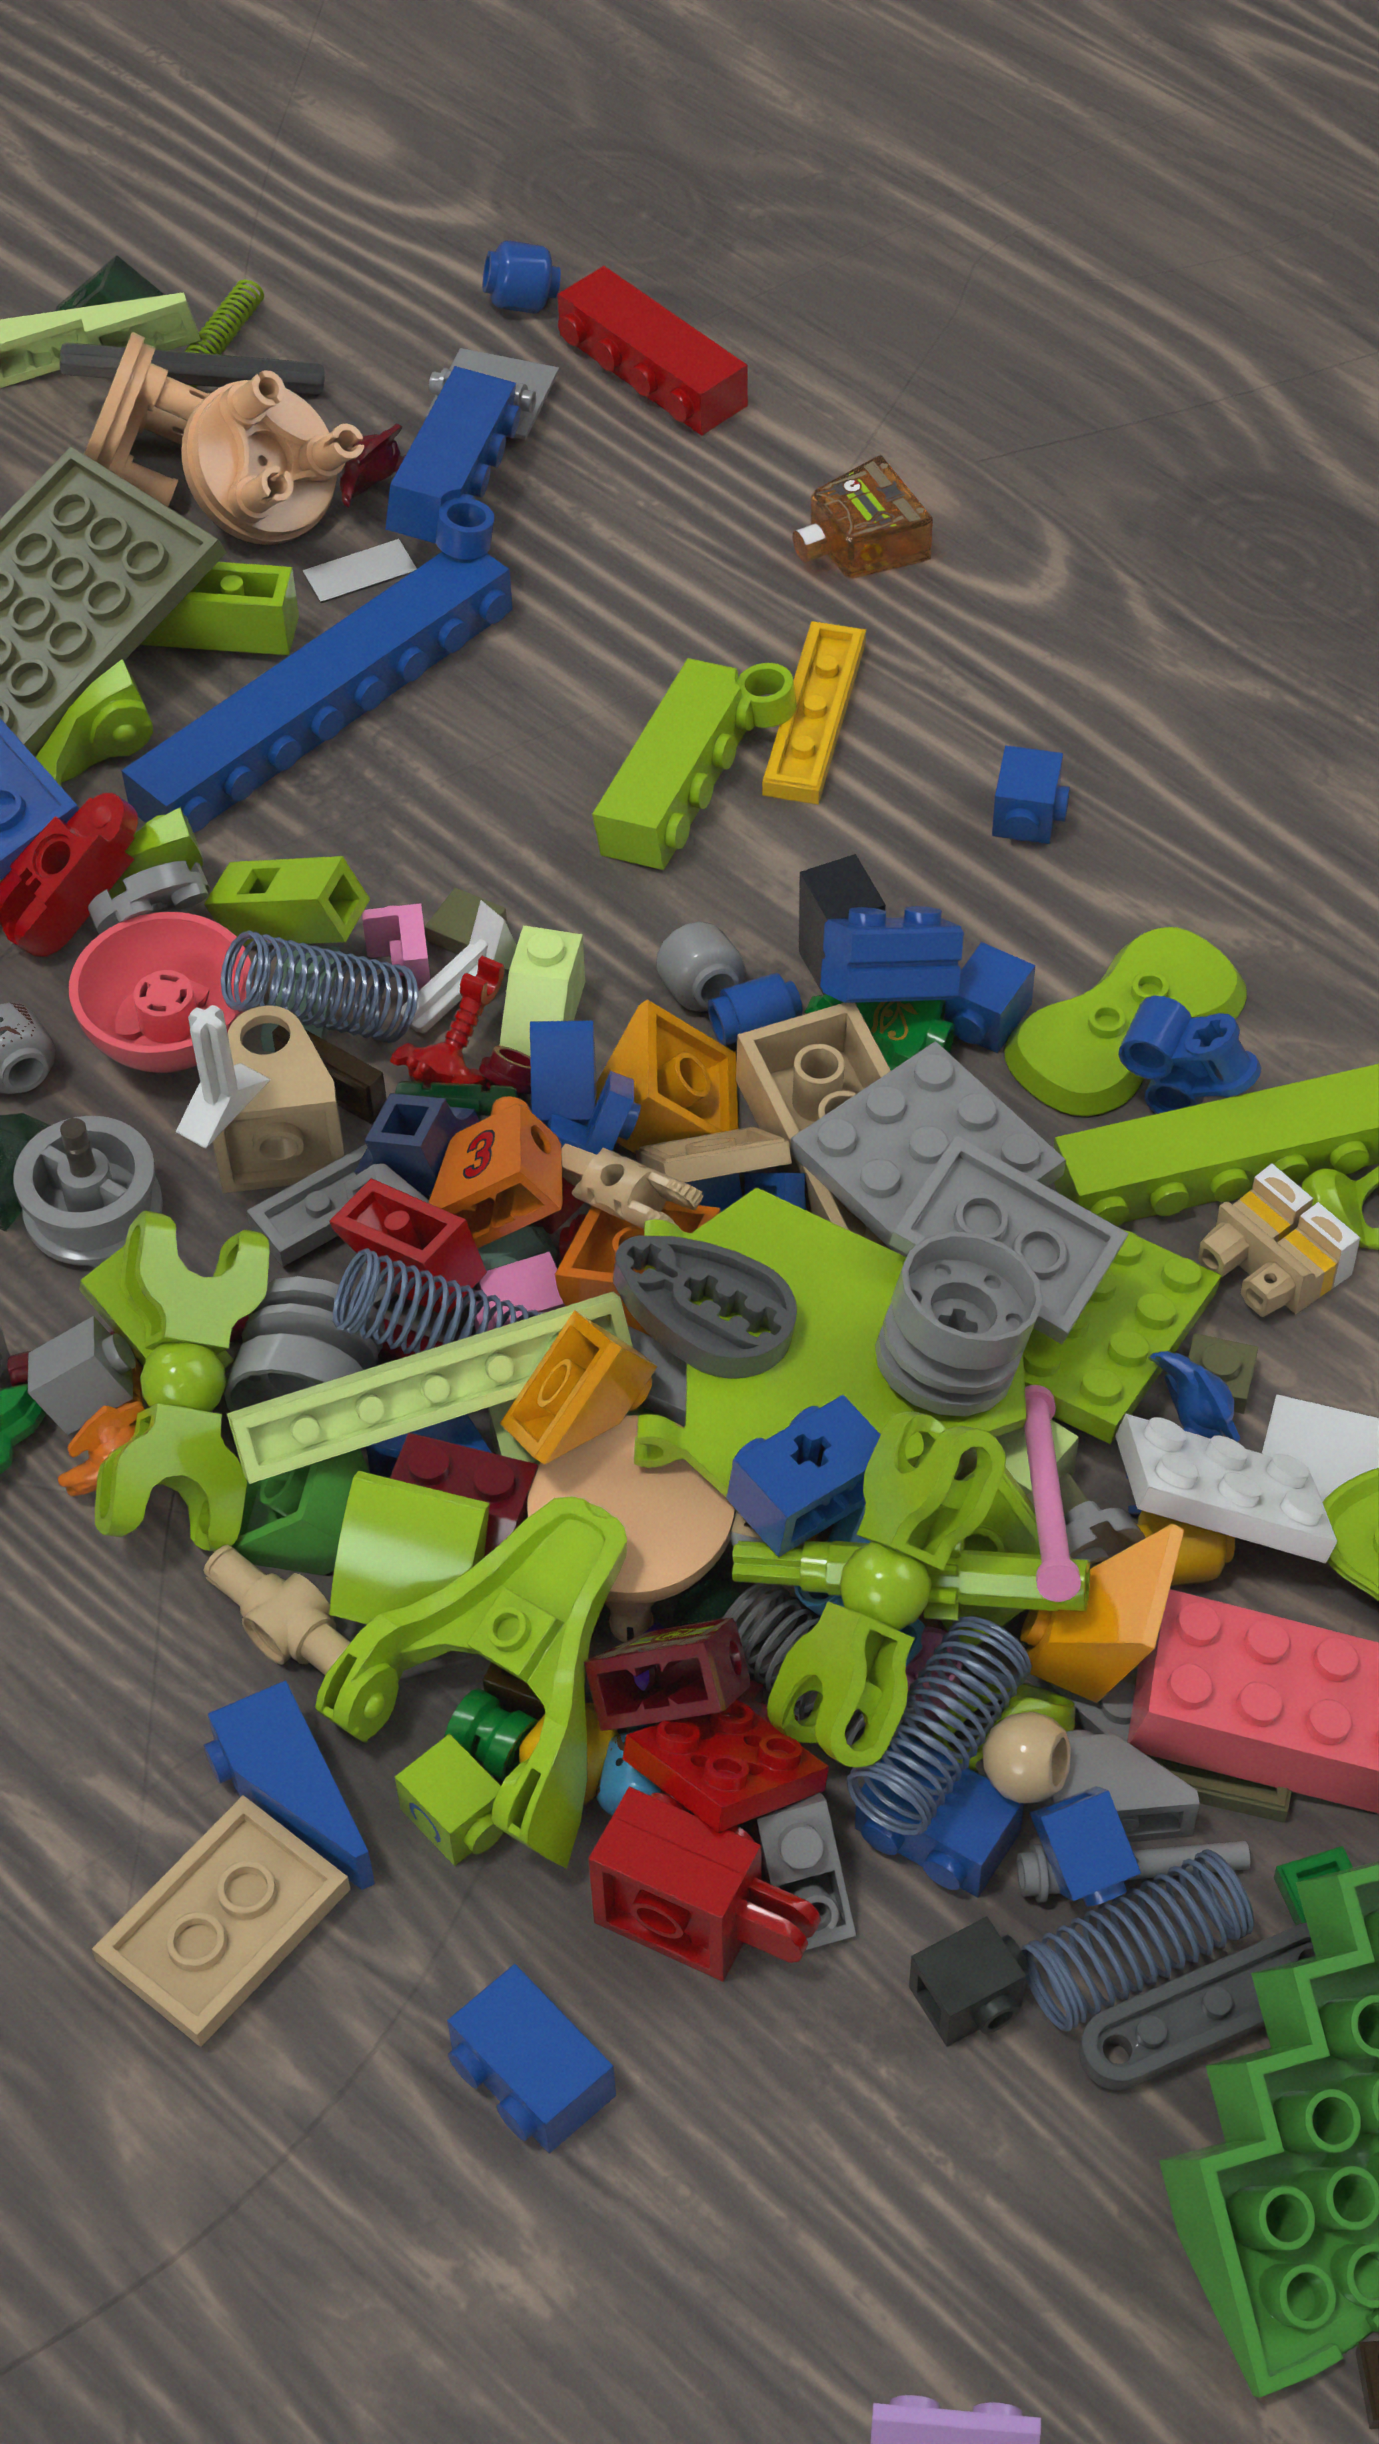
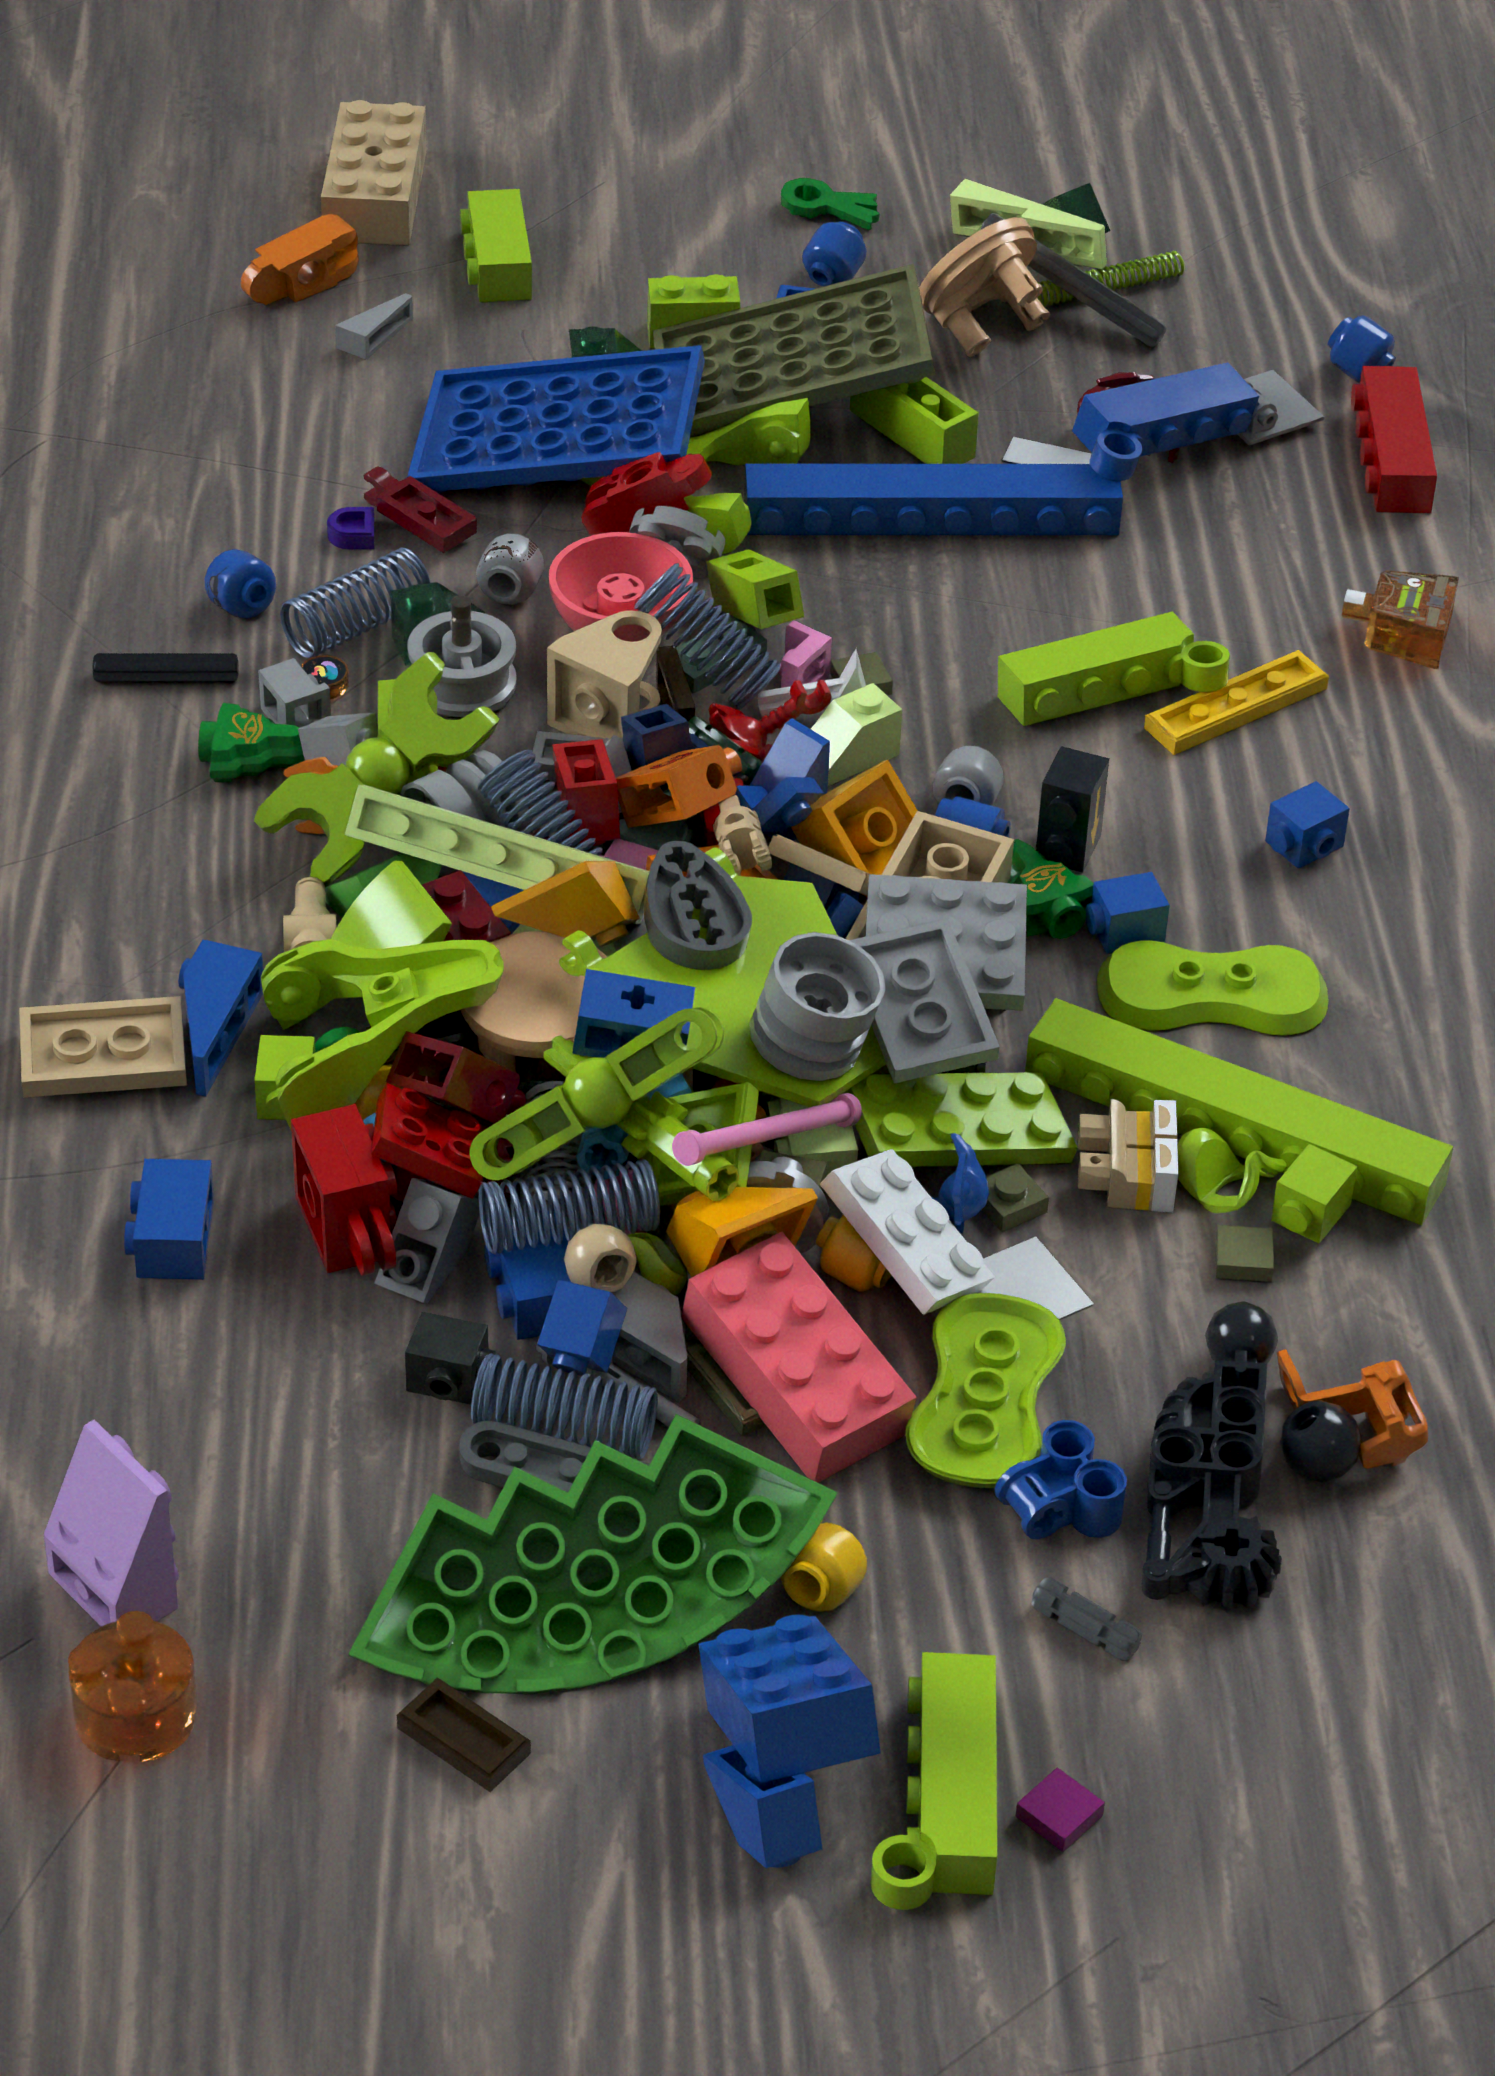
camera: 40 degrees right, 10 degrees down
(223, 1086) = (562, 634): white piece -> none
(263, 460) = (1039, 348): light nougat piece -> none
(891, 957) = (1064, 829): blue brick -> none
(1186, 1055) = (1195, 1005): blue piece -> none

